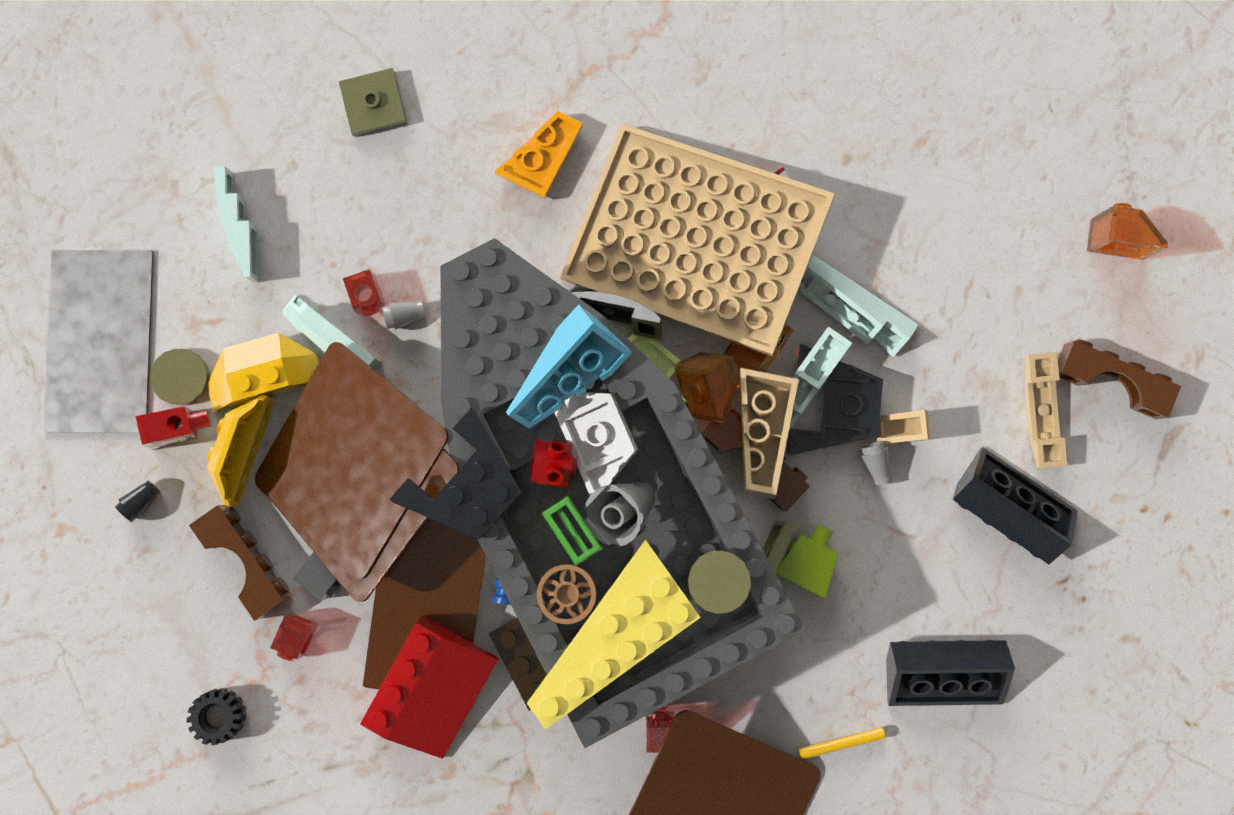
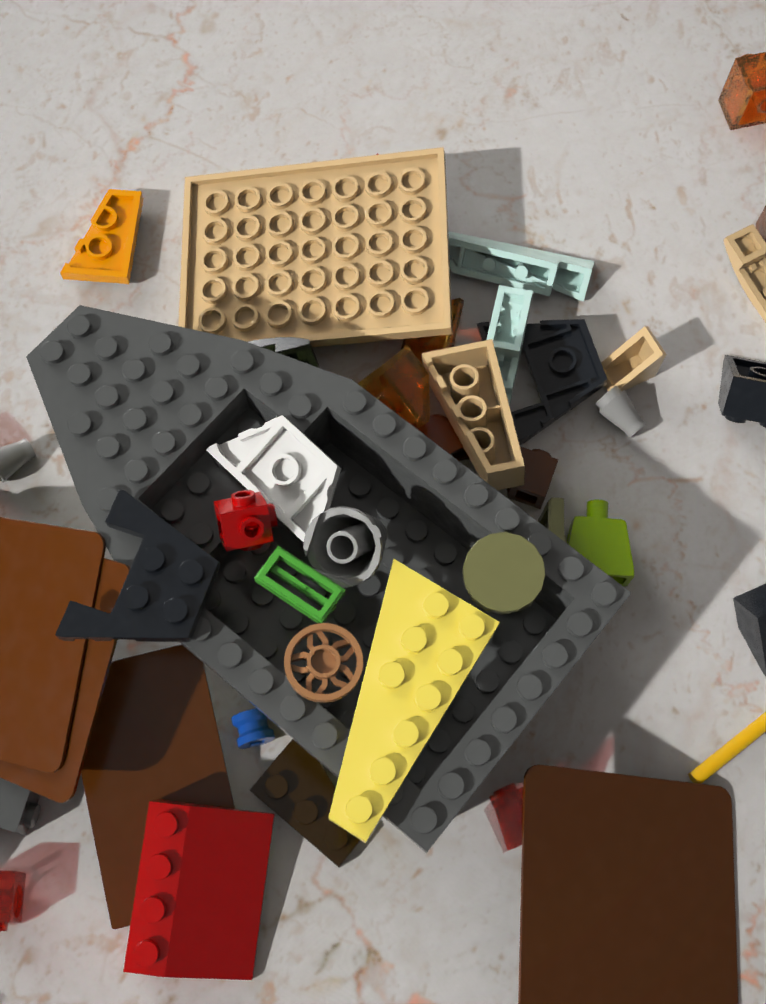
camera: 20 degrees left, 15 degrees down
(571, 361) = (220, 394): medium azure wedge -> none

